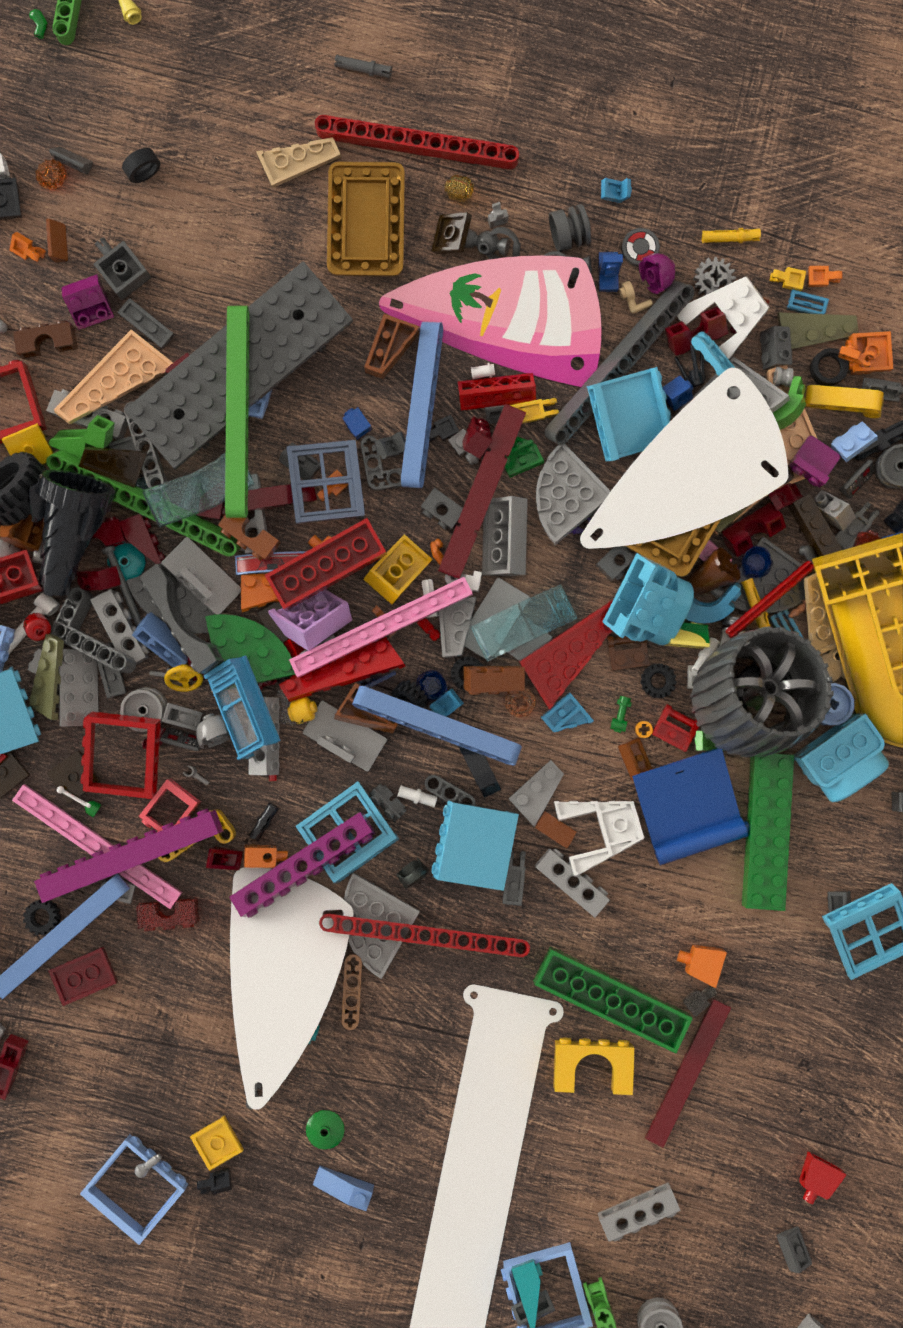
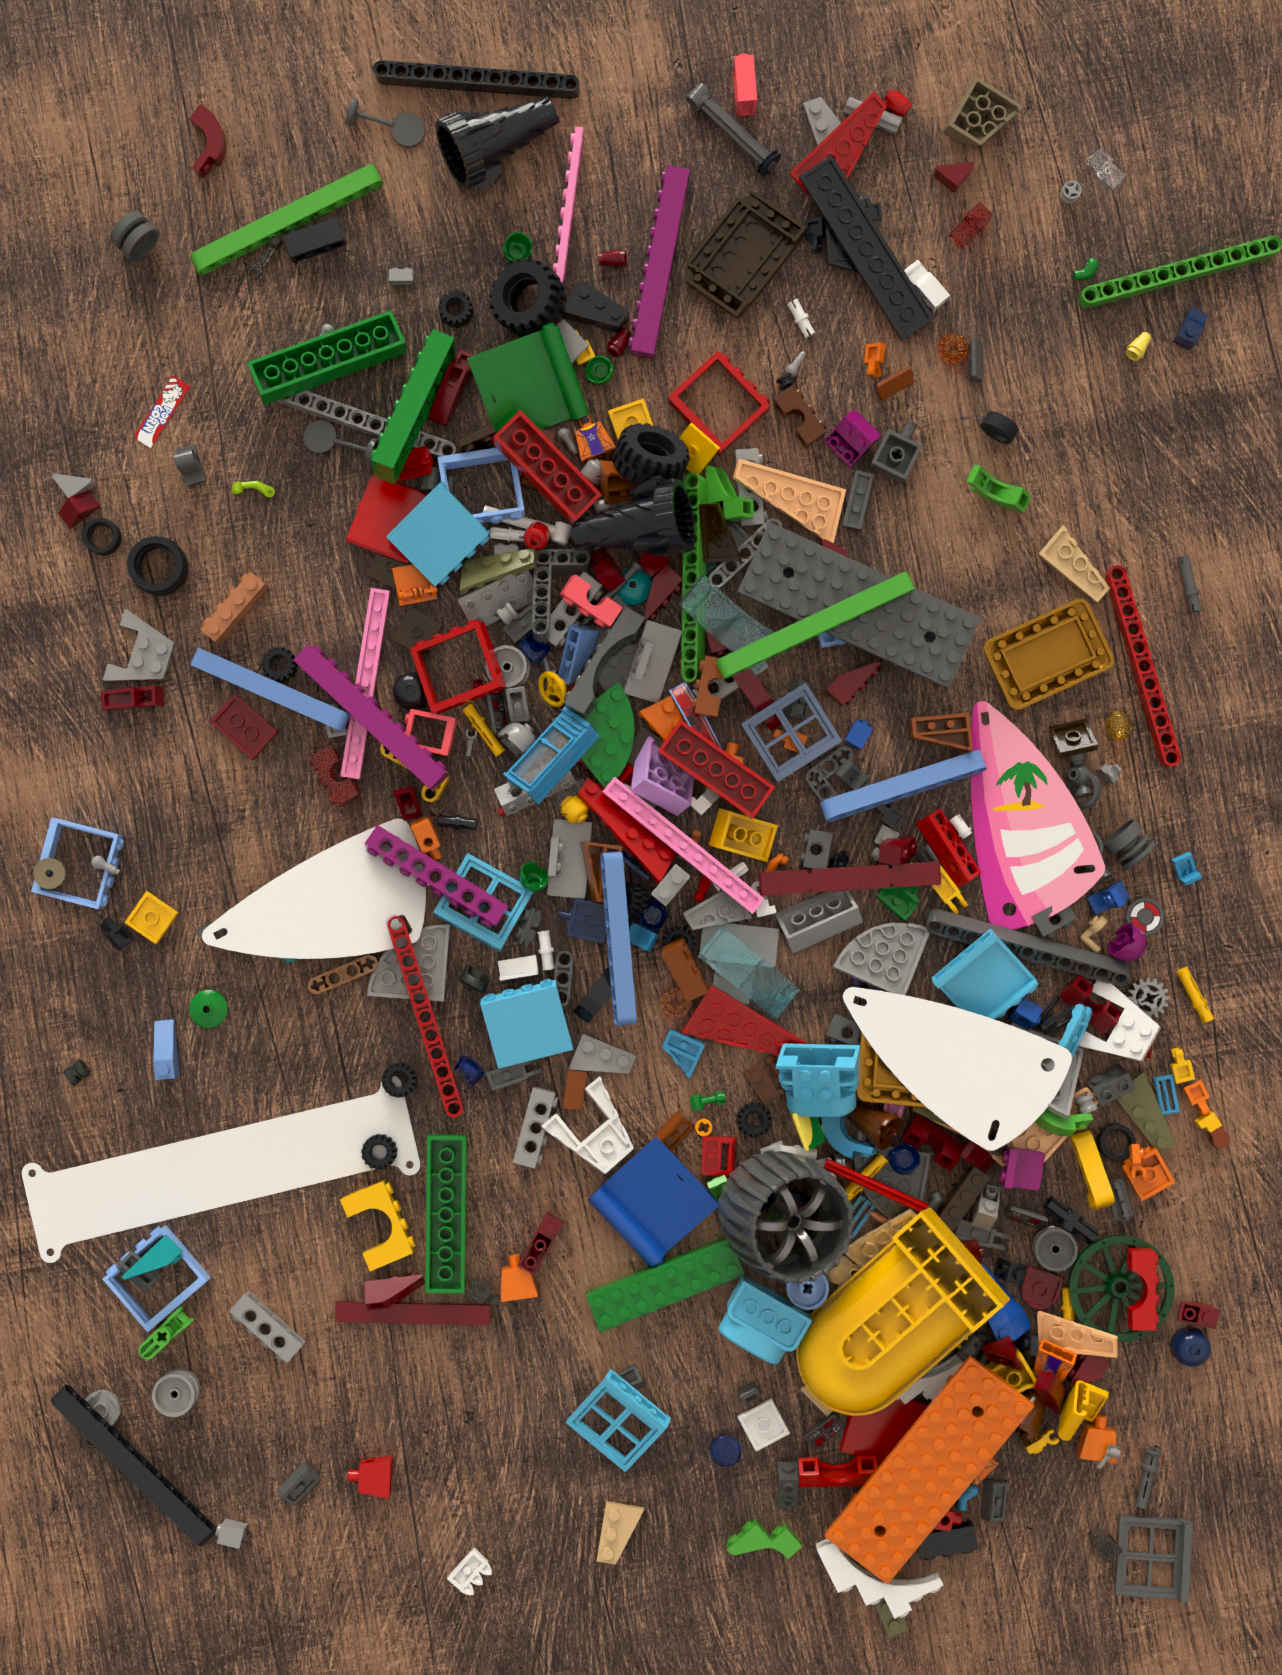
camera: 60 degrees right, 0 degrees up
(7, 337) = (785, 381): none -> black bush
(23, 653) = (507, 534): none -> white axle
(28, 761) = (412, 585): none -> orange hinge
(91, 807) = (398, 661): hinge -> none
(95, 686) = (507, 613): none -> light grey wheel
(105, 615) = (576, 593): none -> coral arch
(123, 810) = (409, 691): none -> black cylinder
(132, 1210) = (43, 879): none -> dark tan piece
(139, 678) = (534, 650): none -> clear blue hair
(183, 760) = (484, 731): none -> yellow pin
(199, 195) = (997, 492): none -> bright green arch
(306, 410) = (847, 684): none -> dark red slope
(326, 1282) = (77, 1072): none -> pearl dark grey wheel
(345, 777) = (533, 877): none -> green hair
(351, 590) = (704, 801): none -> white leg
(407, 747) = (586, 920): none -> dark blue plate
(411, 655) = (670, 885): none -> light grey brick
(421, 829) = (518, 967): none -> white panel
(462, 493) = (840, 860): none -> black plant
(483, 985) = (387, 1080): none -> black tyre
(492, 916) = (469, 1069): none -> clear blue hair
(532, 1045) = (367, 1154): none -> black tyre
(607, 339) = (1045, 928): none -> dark grey brick
(658, 1088) = (386, 1292): none -> dark red slope
(679, 926) = (541, 1243): none -> dark red slope
(854, 441) = (1057, 1196): light blue bracket -> none
(858, 275) = (1217, 1135): none -> leg

